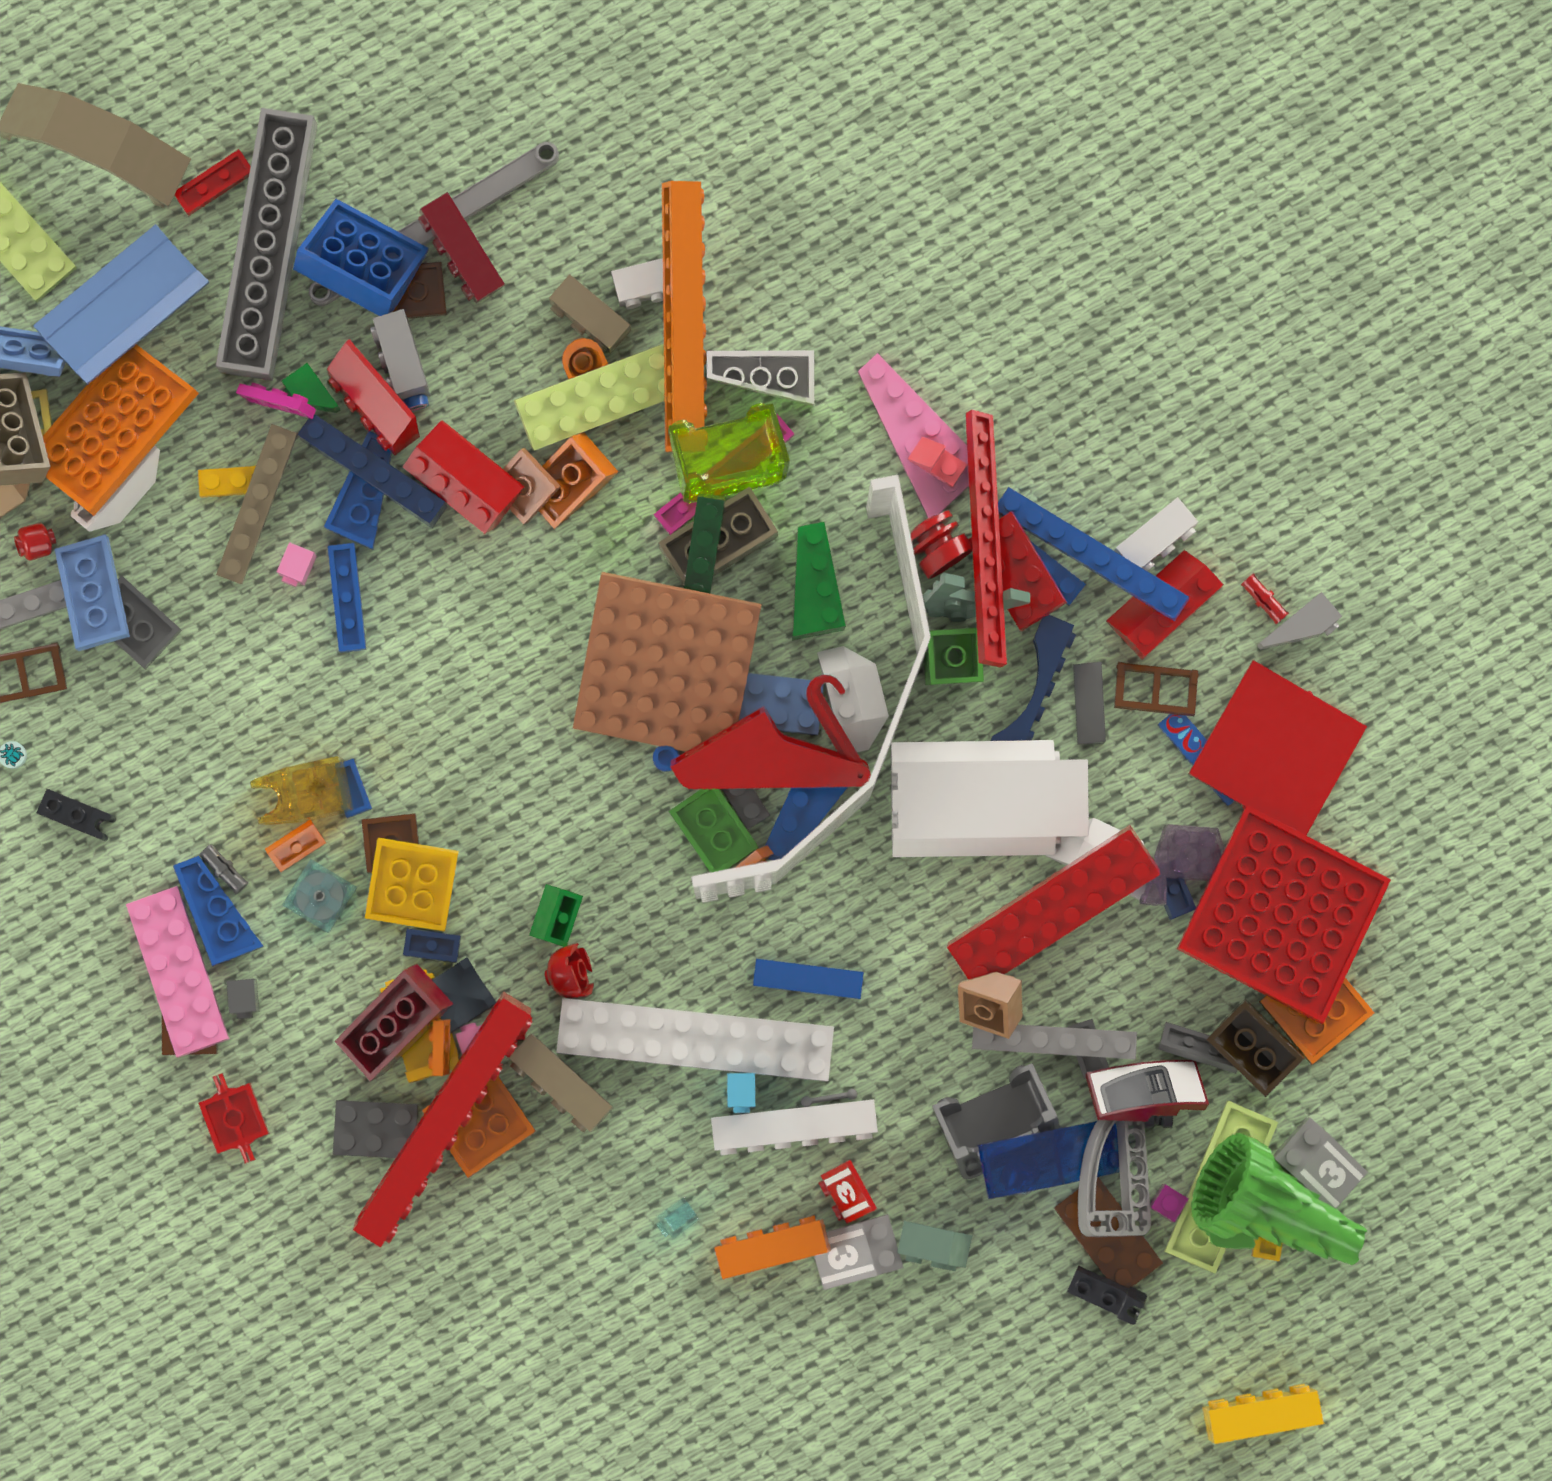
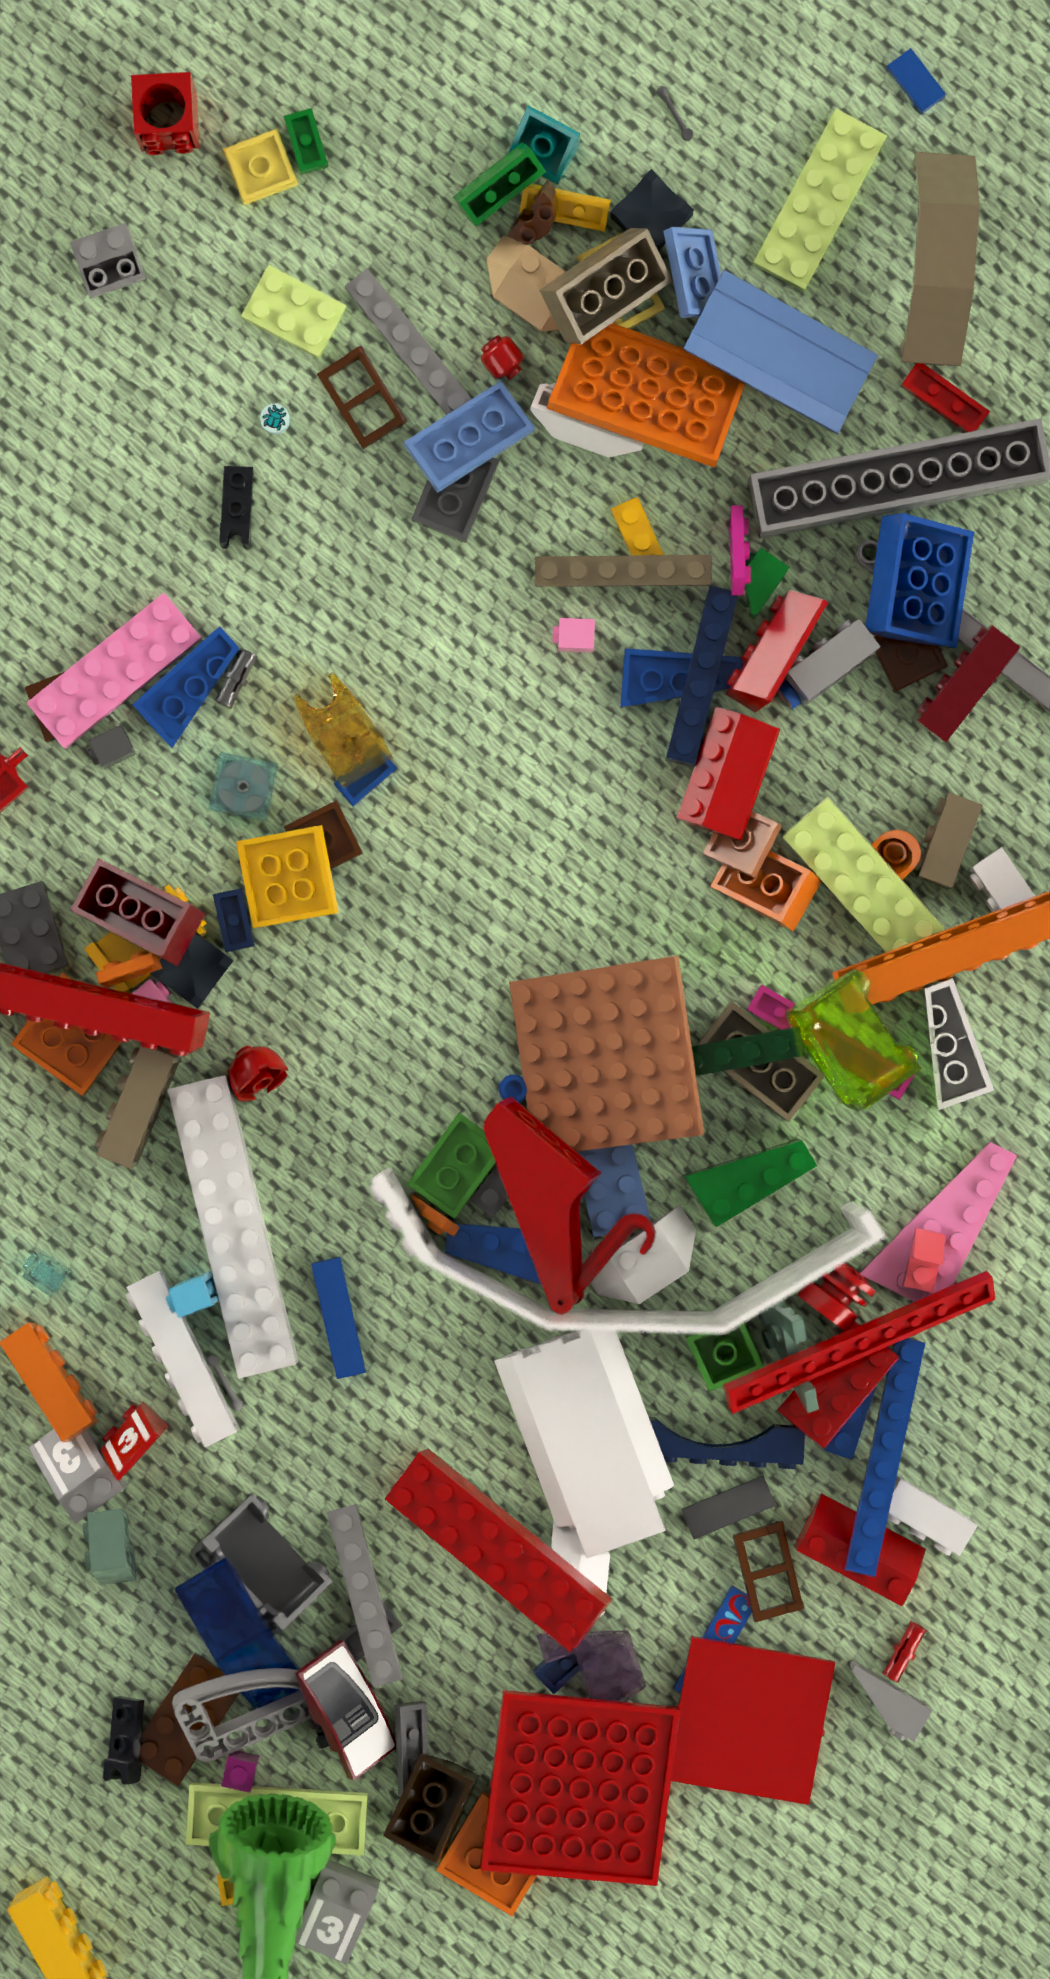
camera: 70 degrees right, 5 degrees up
(295, 845) = (285, 742): orange plate -> none
(347, 597) = (560, 699): blue plate -> none
(556, 915) = (308, 1036): green brick -> none
(991, 1003) = (377, 1519): medium nougat slope -> none

